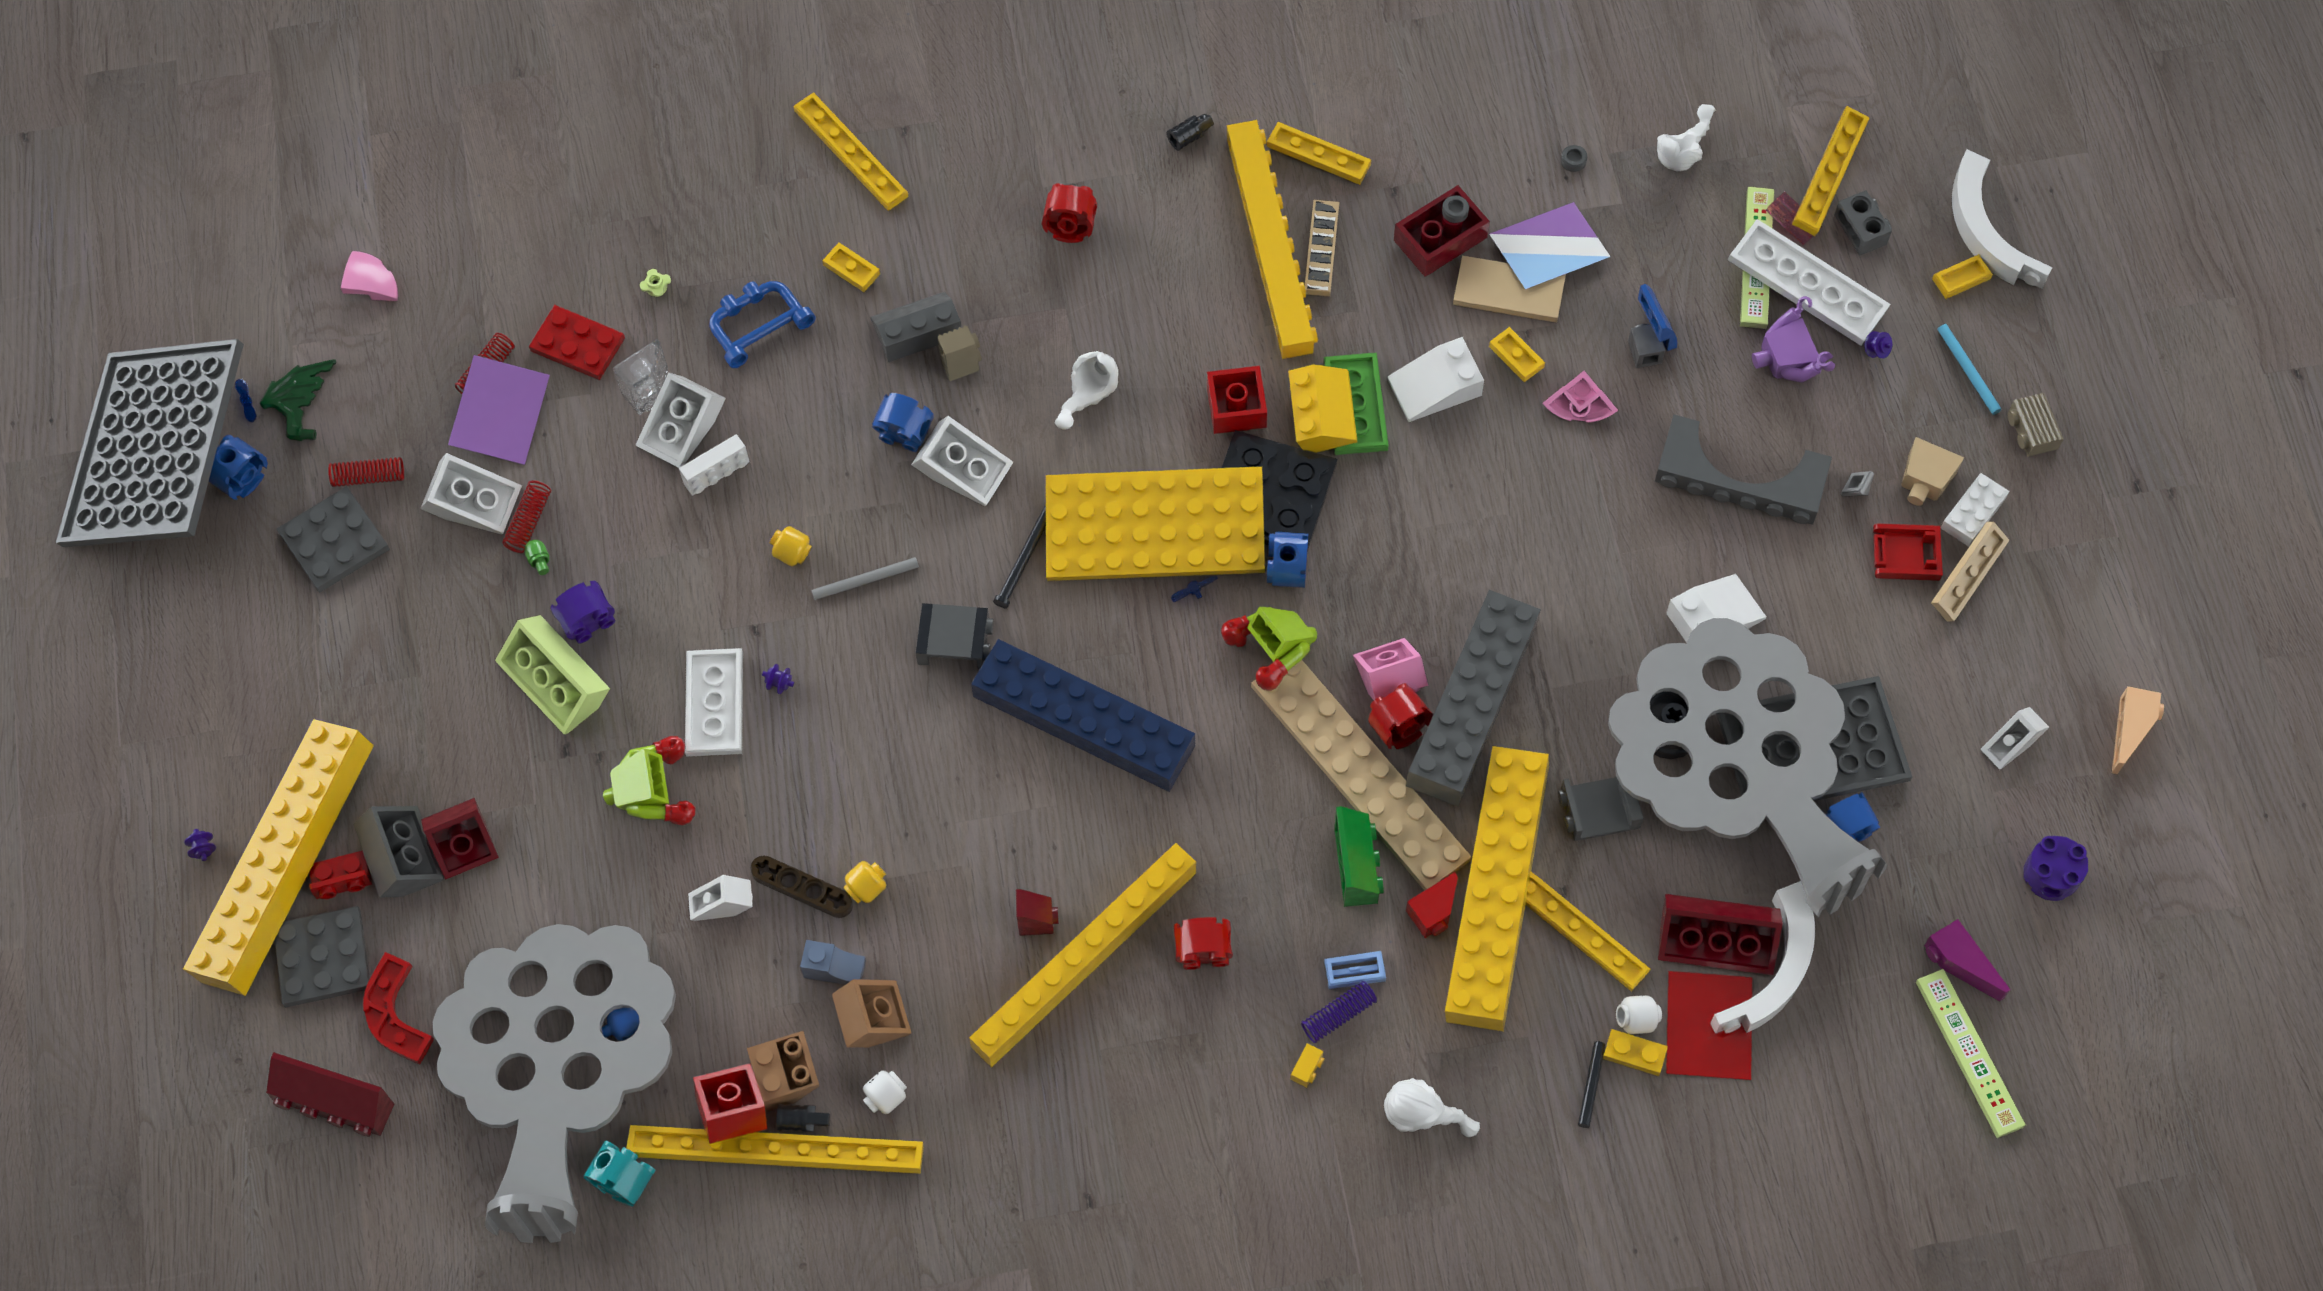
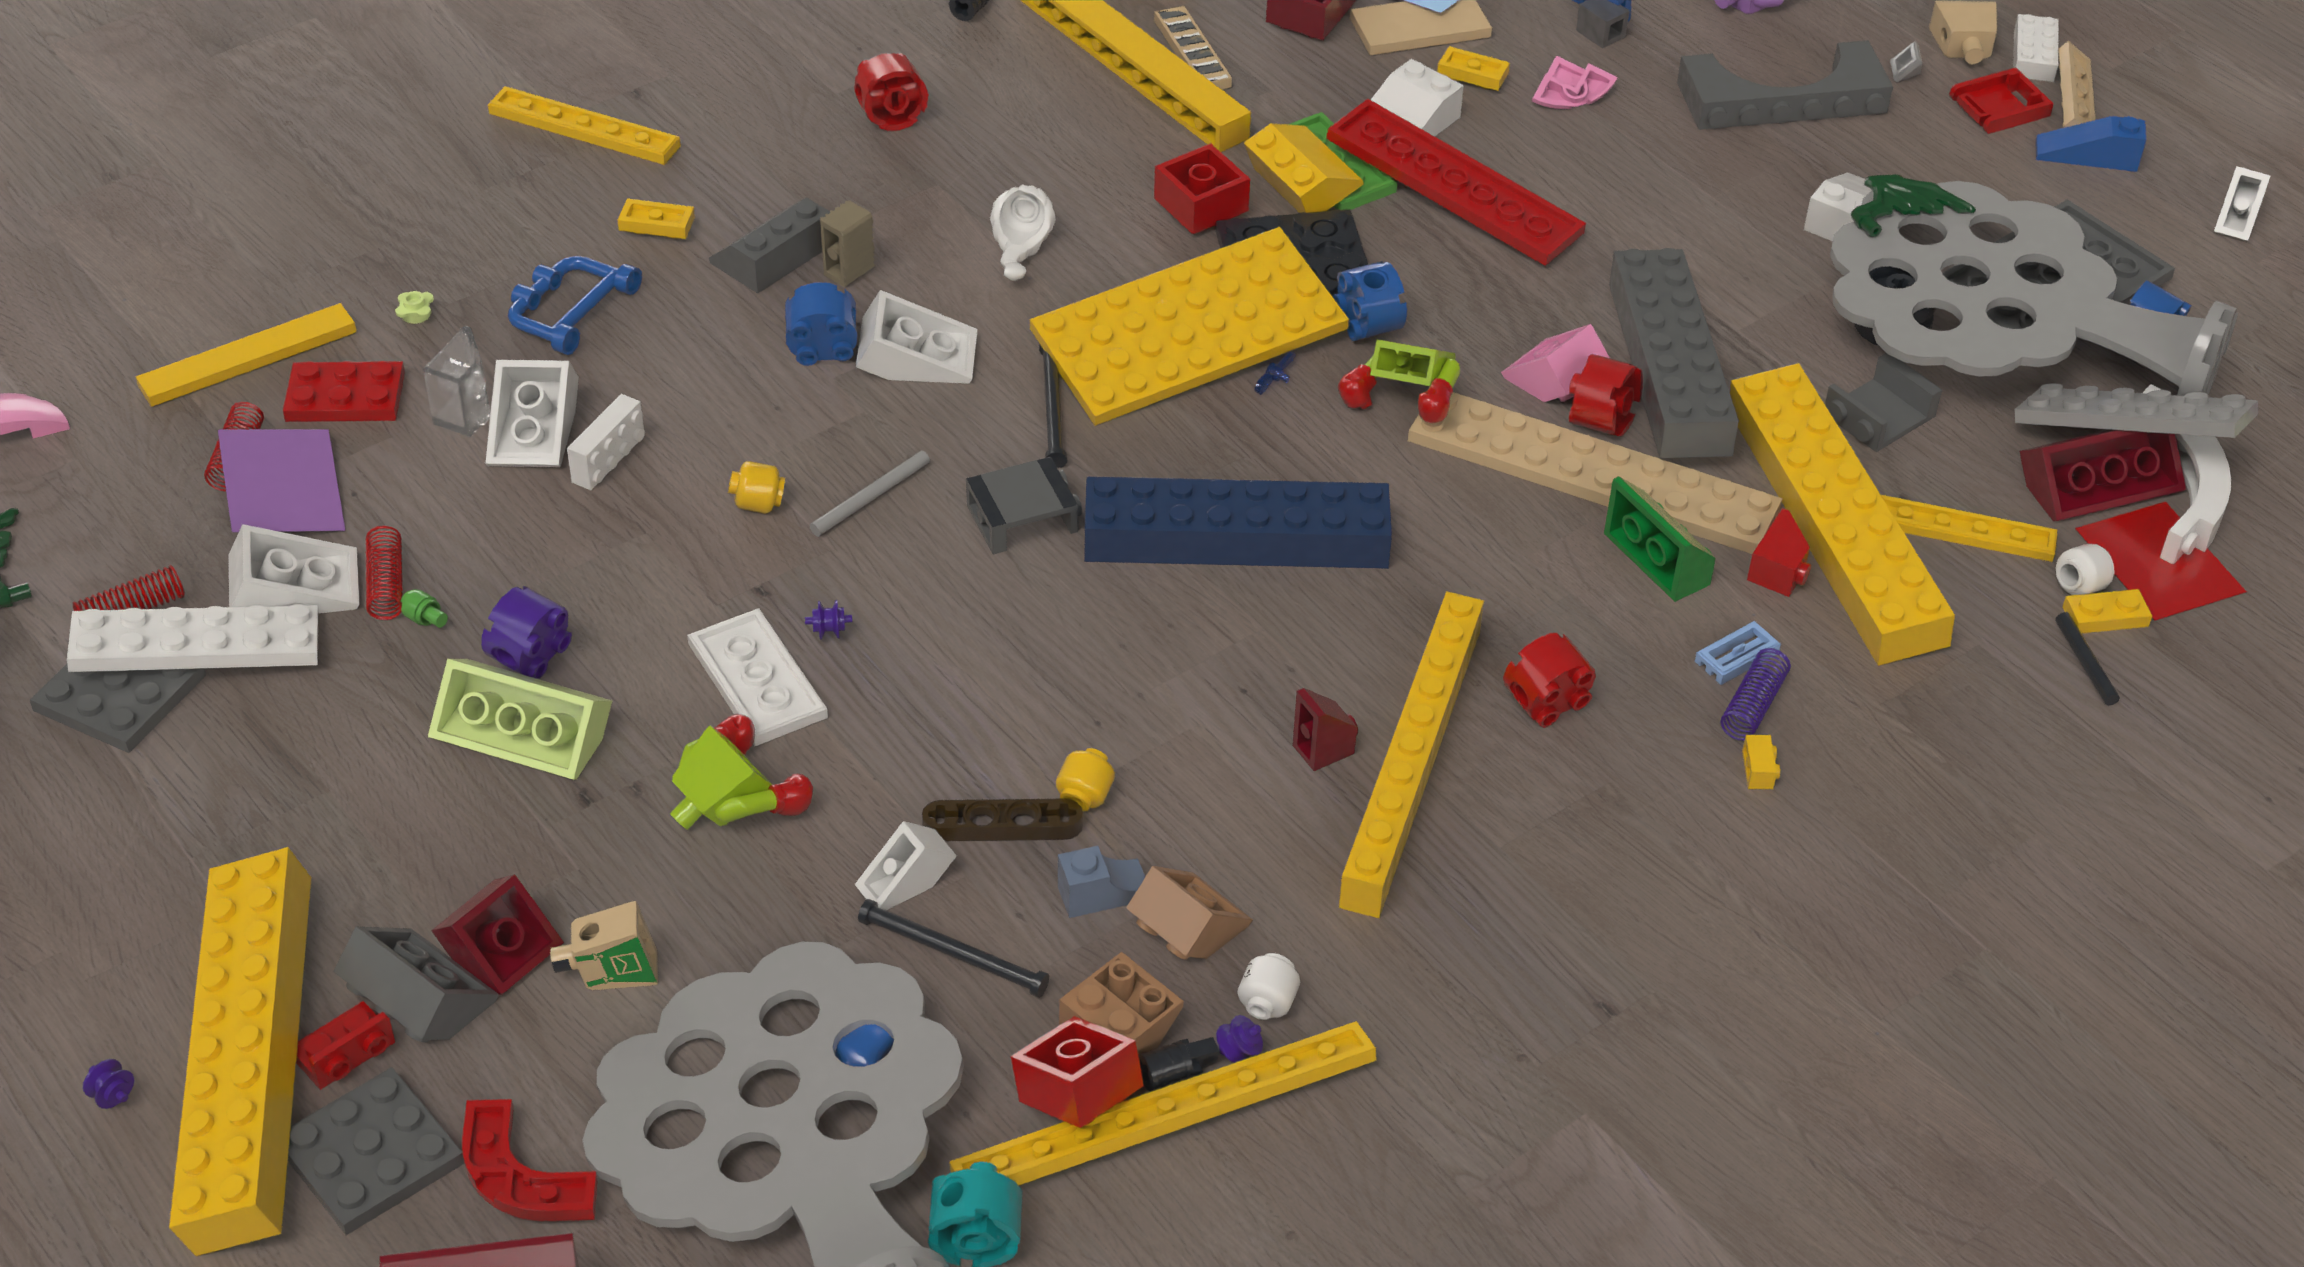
camera: 30 degrees left, 20 degrees down
(388, 524) = (193, 638): none -> white plate
(514, 883) = (610, 949): none -> tan torso
(531, 282) = (245, 354): none -> yellow tile
(726, 981) = (873, 914): none -> black bar
(846, 1121) = (1239, 1039): none -> dark purple wheel
(1416, 1106) = (1921, 744): white hair -> none
(1426, 467) = (1456, 181): none -> red plate
(1728, 636) = (1905, 196): none -> dark green animal
(1761, 907) = (2137, 411): none -> light grey plate
(1943, 628) = (2098, 143): none -> blue slope

